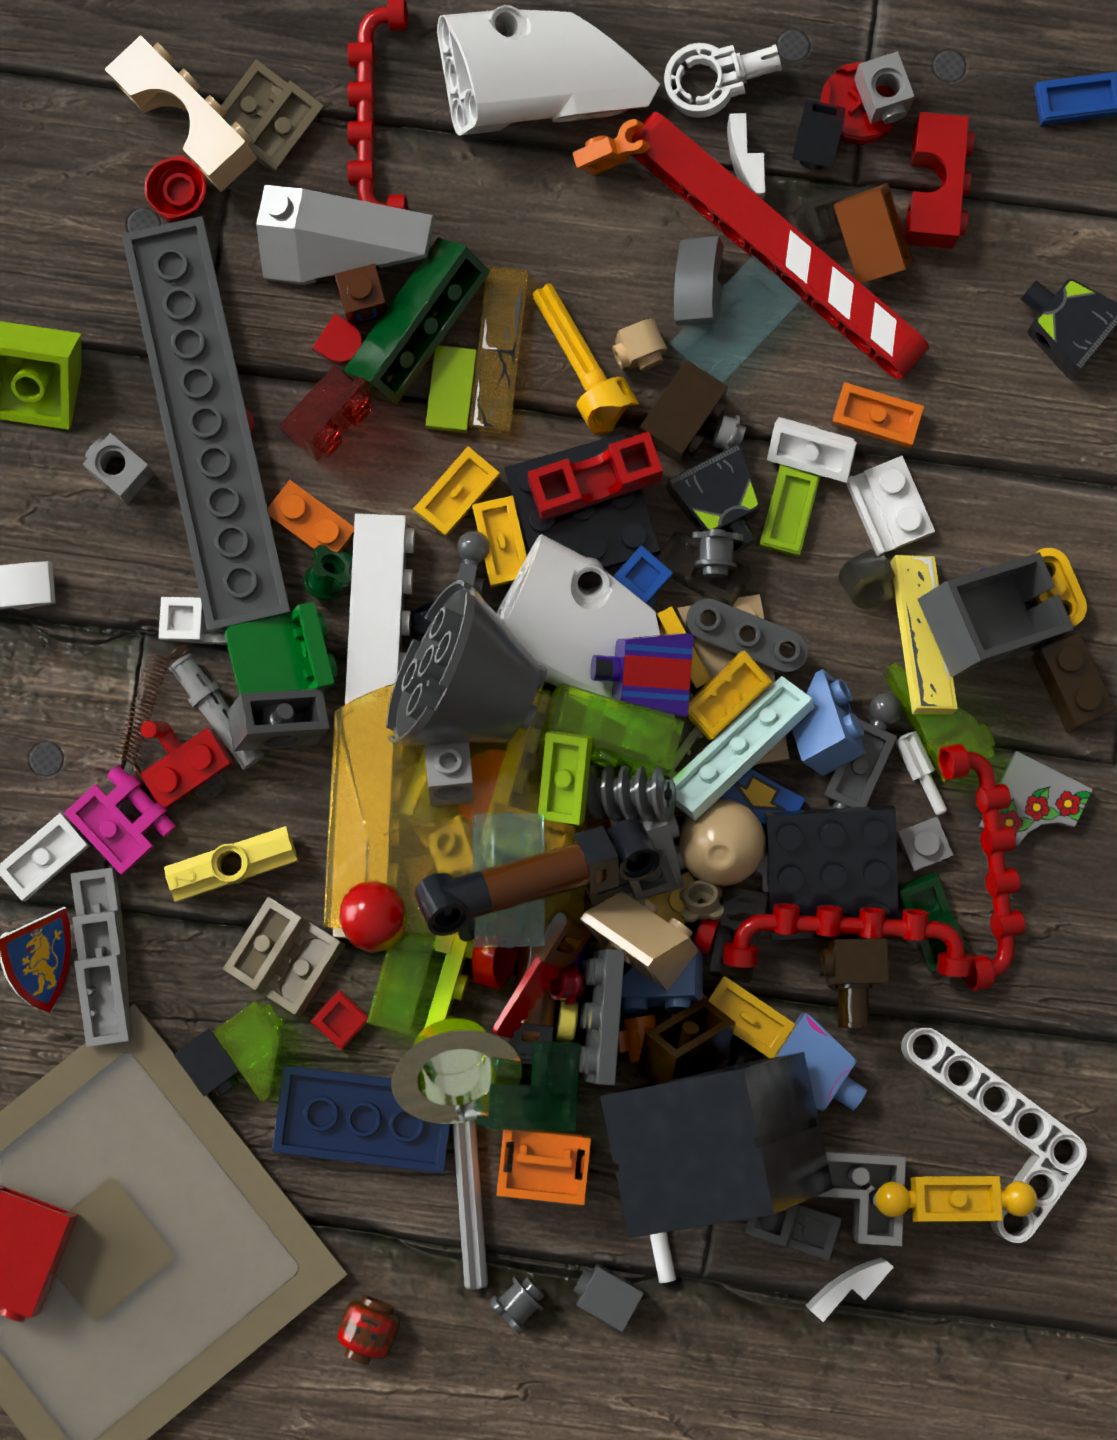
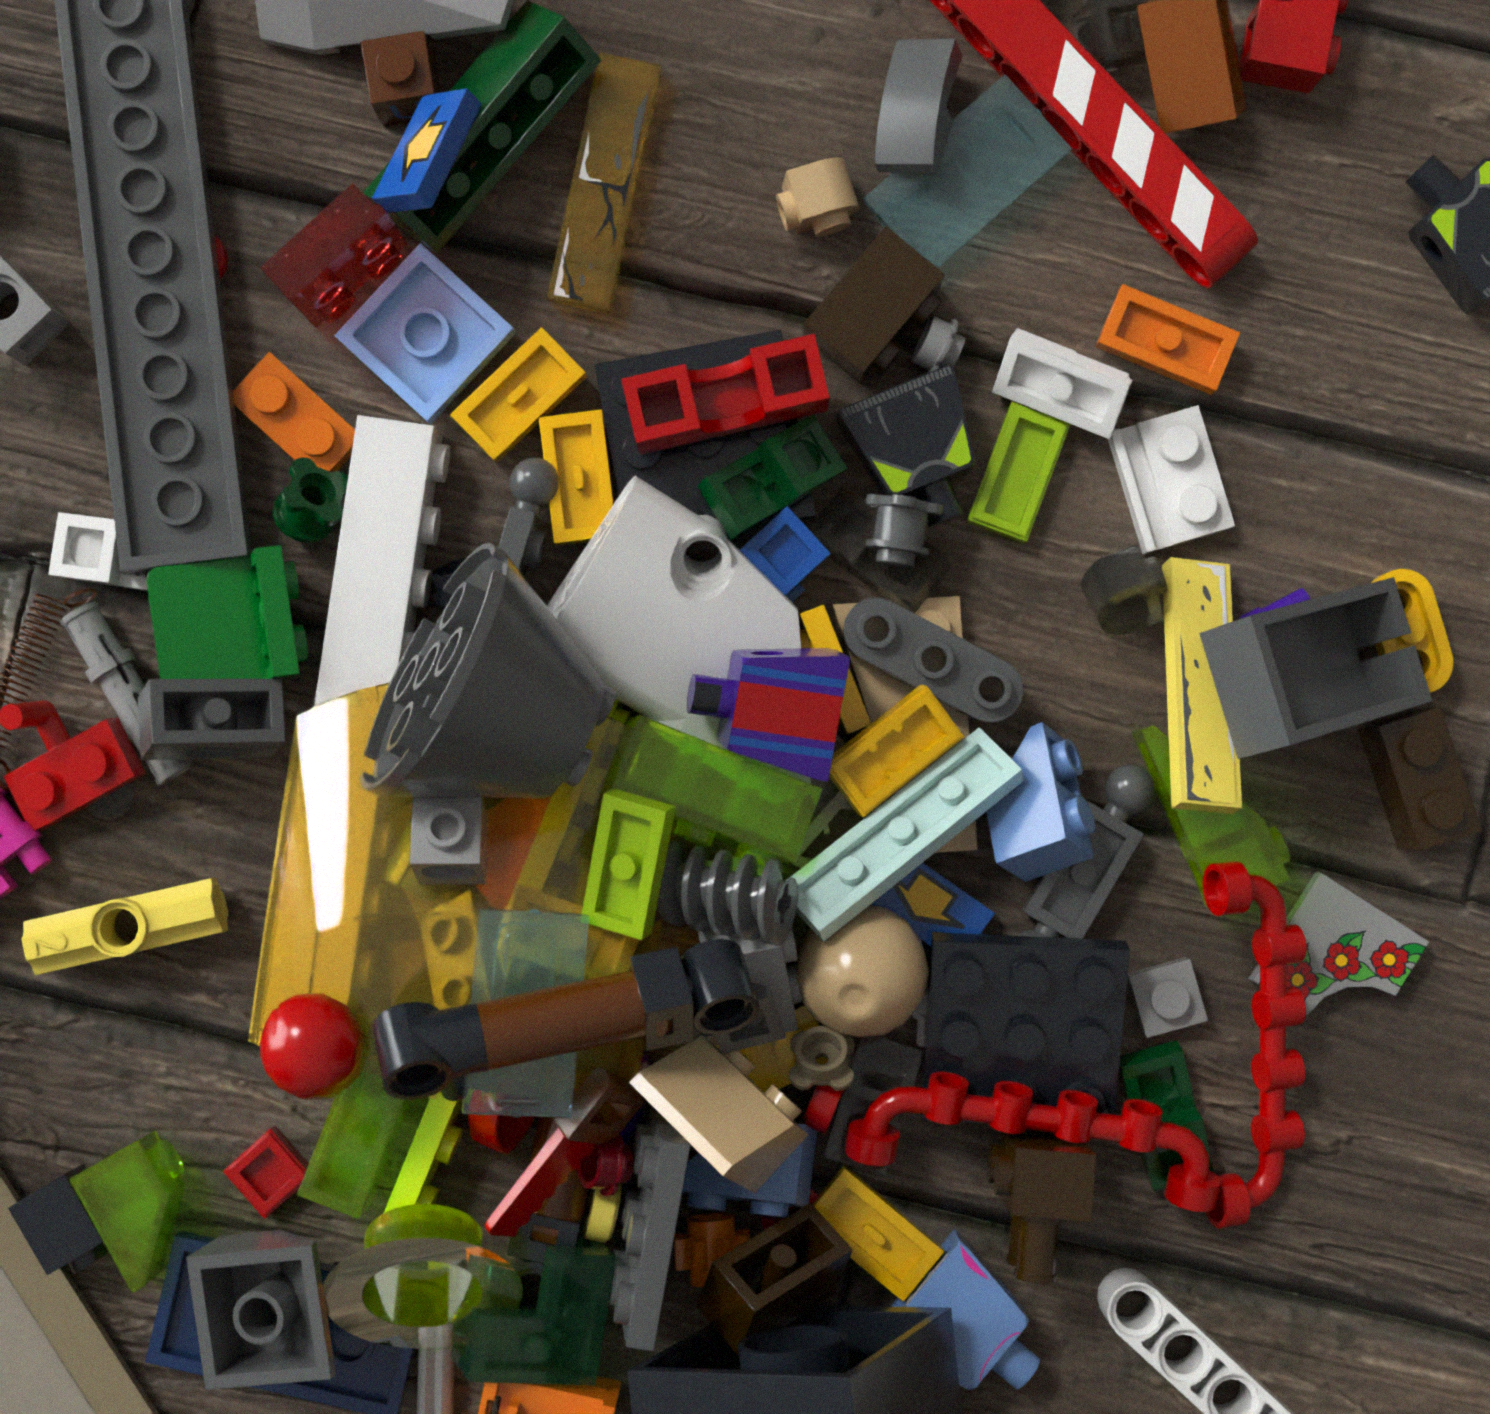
camera: 15 degrees right, 5 degrees up
(284, 957) = (190, 1071): dark tan slope -> none
(338, 341) = (362, 146): red tile -> none
(353, 1098) = (260, 1310): none -> dark grey slope
(386, 339) = (427, 151): none -> blue tile
(391, 458) = (425, 333): none -> light blue plate
(451, 389) = (526, 236): lime tile -> none
(604, 397) = (755, 273): yellow piece -> none
(629, 527) = (772, 477): none -> dark green slope
(920, 767) = (1173, 883): white axle -> none

